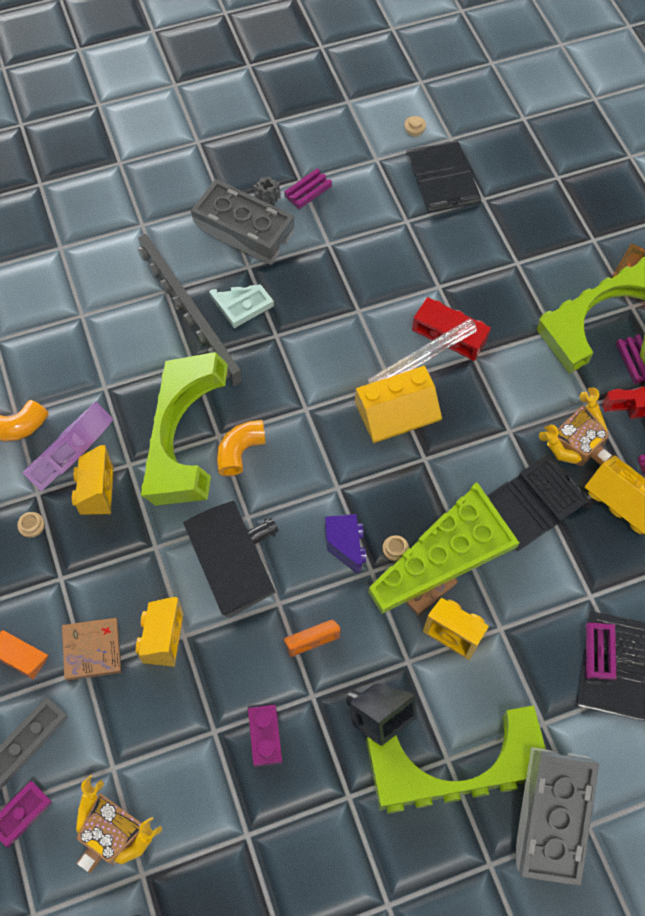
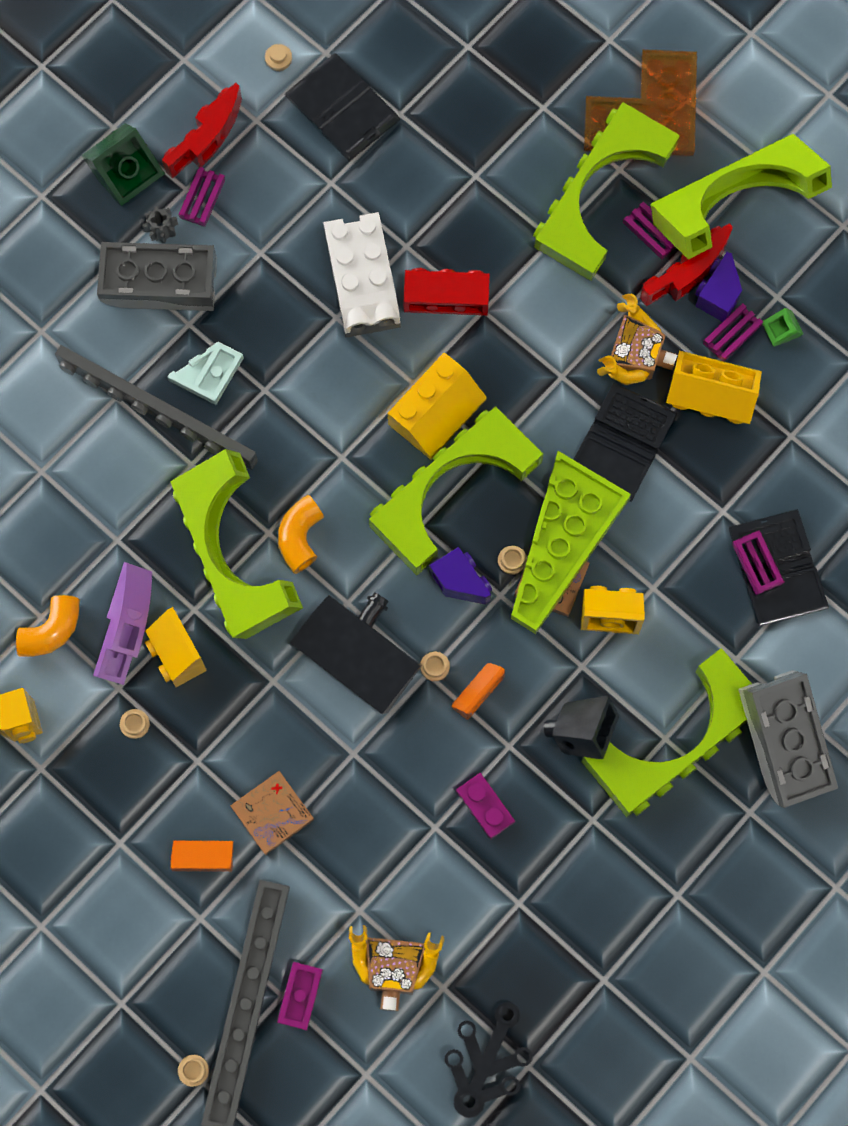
camera: 25 degrees left, 10 degrees up
(161, 632) = (332, 761): yellow slope -> none
(265, 143) = (123, 163): none -> dark green slope
(287, 600) = (435, 666): none -> tan plate
(335, 152) = (213, 126): none -> red slope
(393, 288) = (362, 275): none -> white piece
(423, 448) = (490, 441): none -> lime arch
(427, 351) = (434, 338): clear axle -> none

